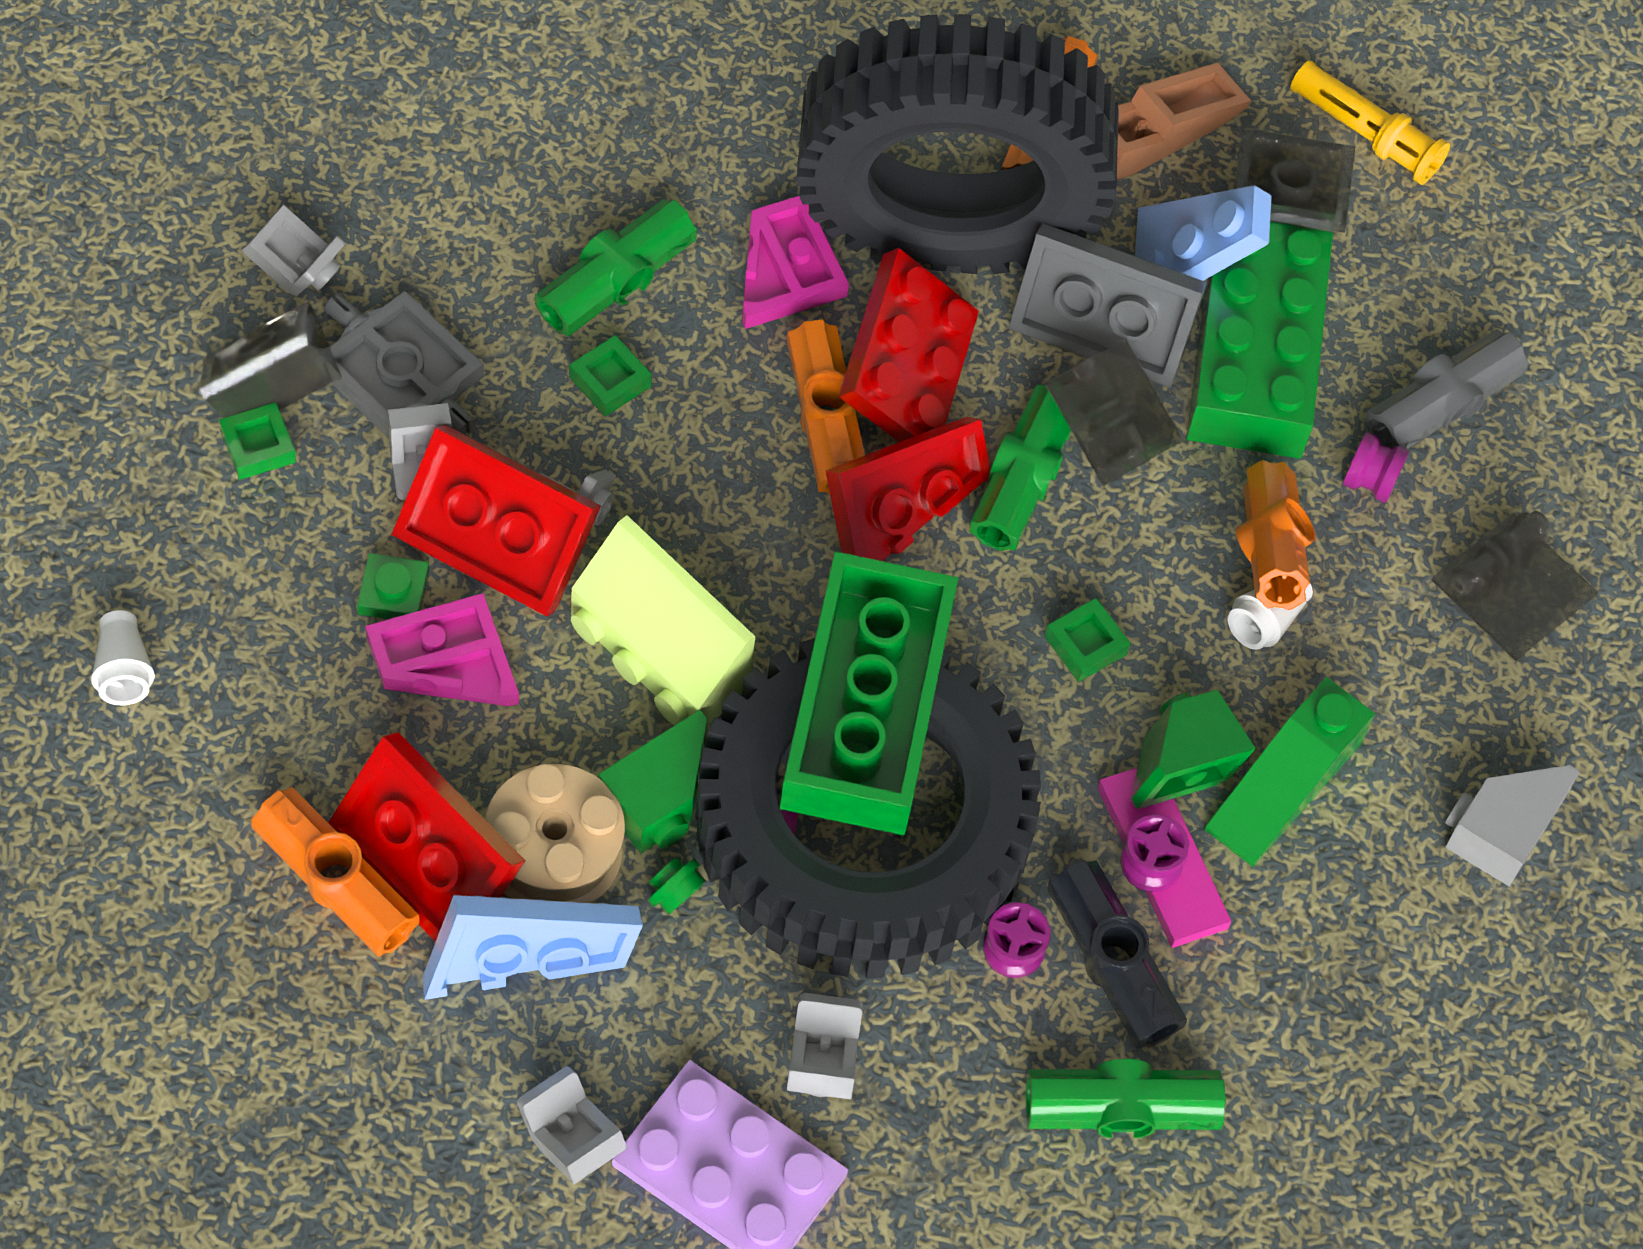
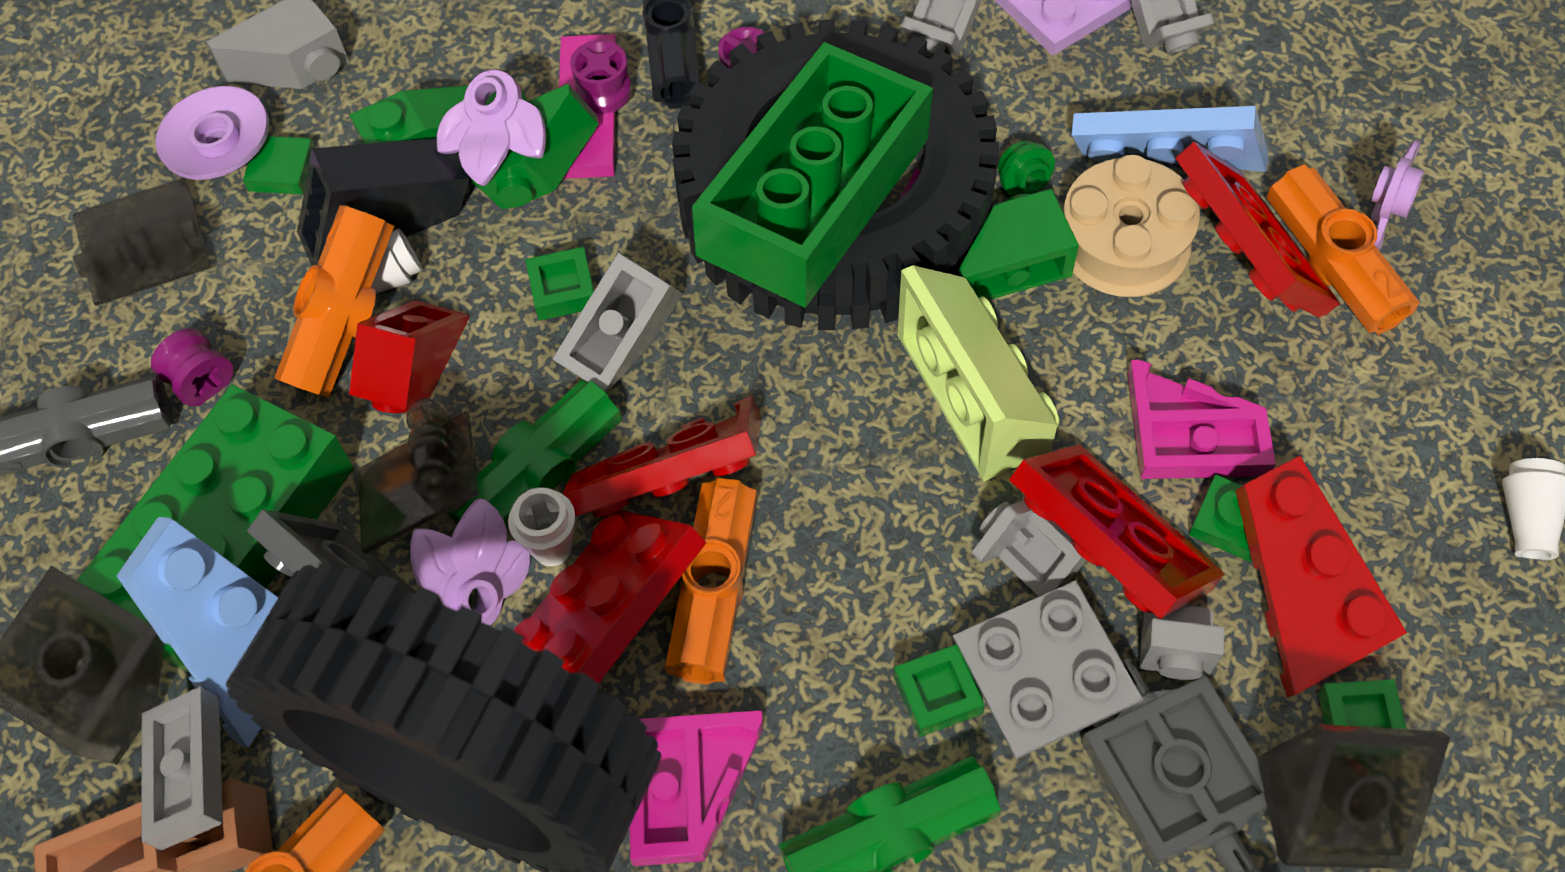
camera: 150 degrees left, 0 degrees up
(290, 904) = (1396, 190): none -> lavender plate
(317, 538) = (1314, 579): none -> red wing
(527, 400) = (1047, 669): none -> light grey hinge
(984, 391) = (543, 525): none -> white cone
(1007, 600) = (617, 323): none -> light grey slope
(1026, 352) = (471, 559): none -> lavender plate
(1163, 144) = (181, 769): none -> light grey plate
(1191, 533) = (403, 354): none -> red slope
(1220, 722) = (488, 131): none -> lavender plate
(1314, 644) = (395, 181): none -> black slope
(1435, 700) = (279, 166): none -> green tile
(1529, 681) = (212, 132): none -> lavender dish

